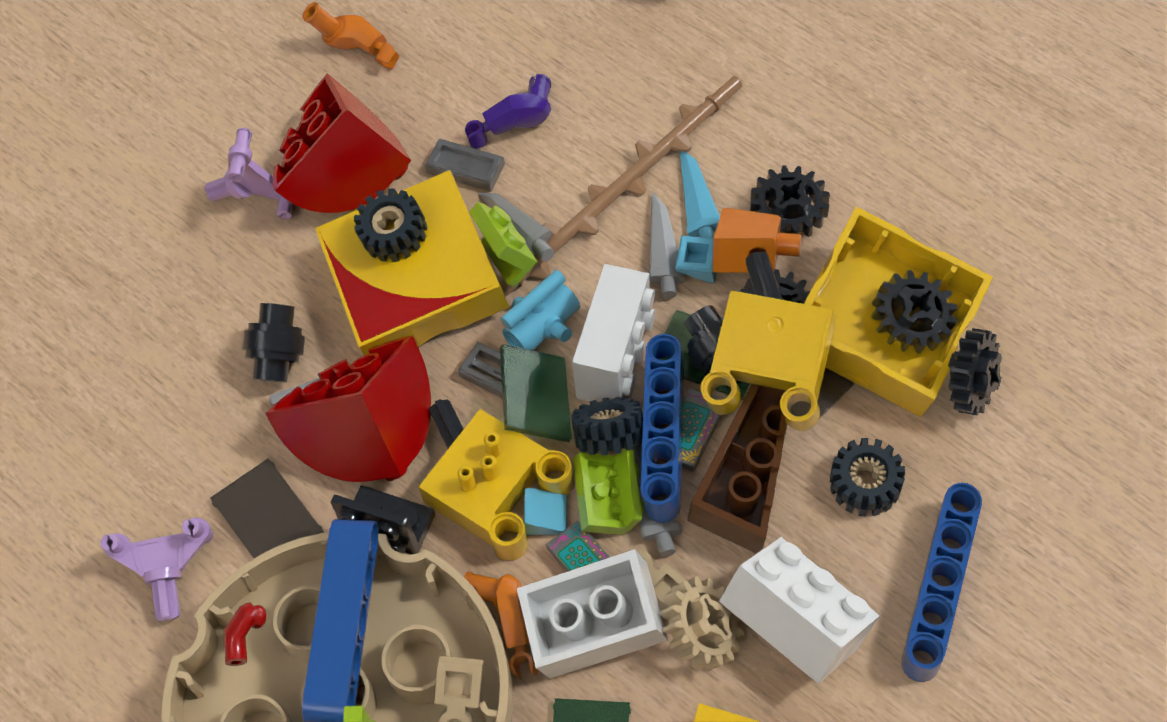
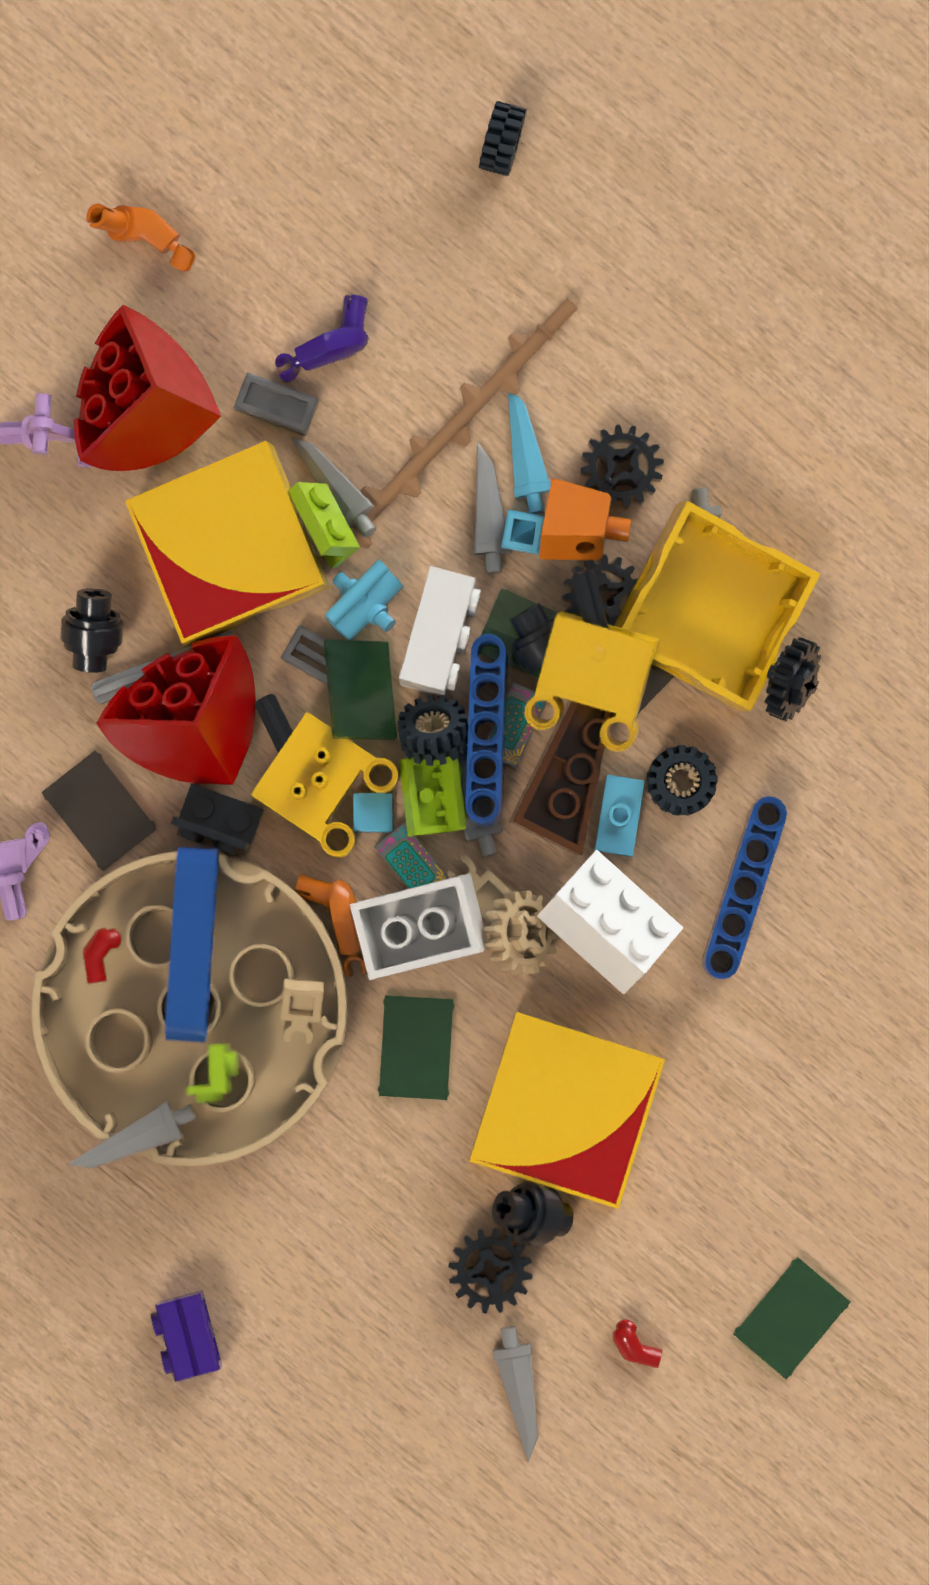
camera: 10 degrees left, 25 degrees up
(408, 225) = (225, 520): black bush -> none
(804, 511) = (619, 815): none -> medium azure plate
(928, 325) = (752, 618): black gear -> none

